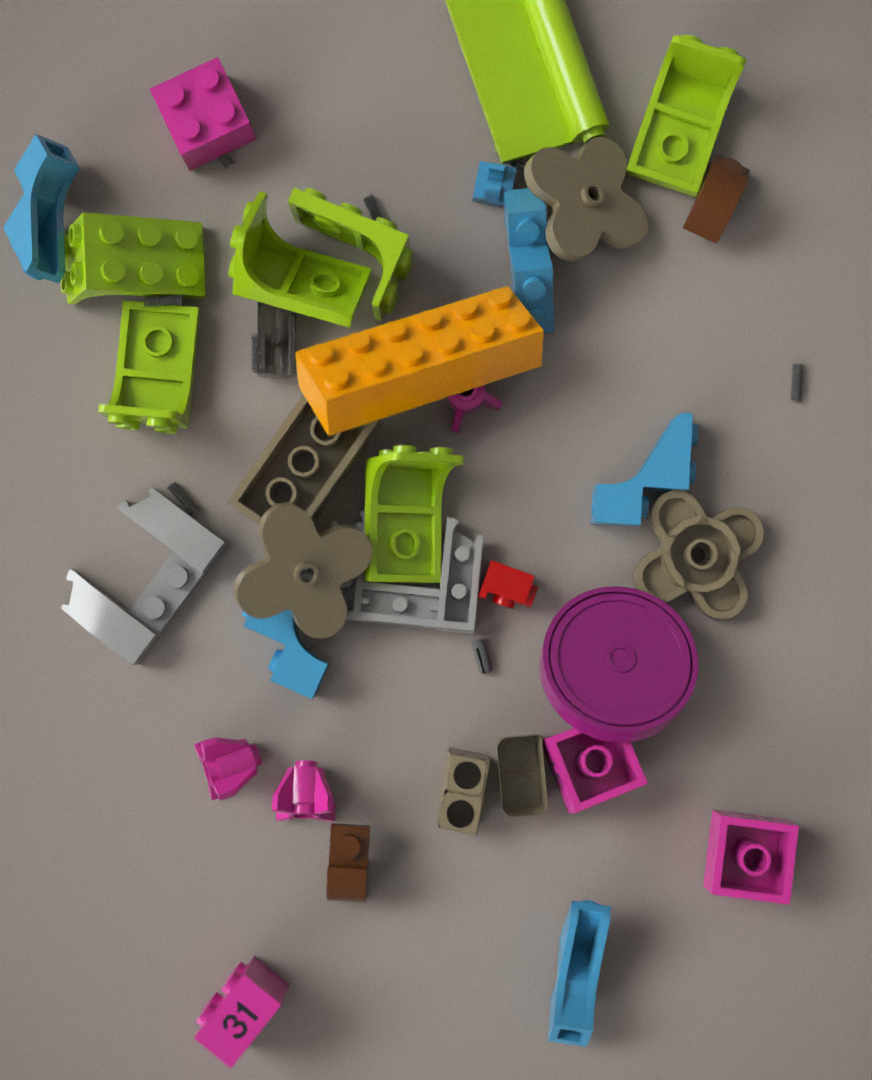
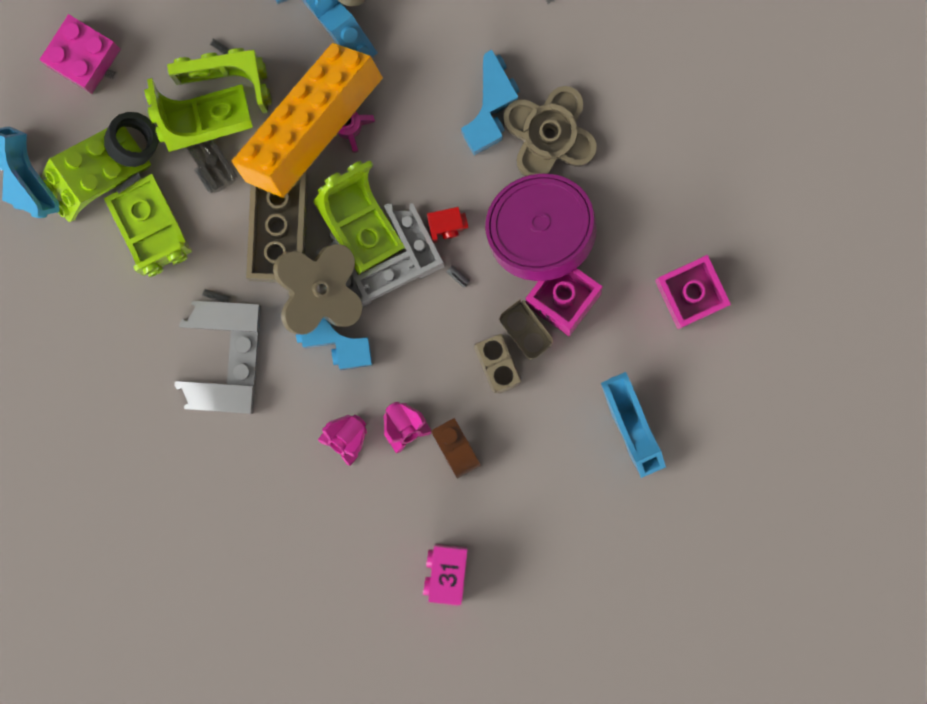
camera: 30 degrees left, 0 degrees up
(175, 266) = (122, 155): none -> black tyre

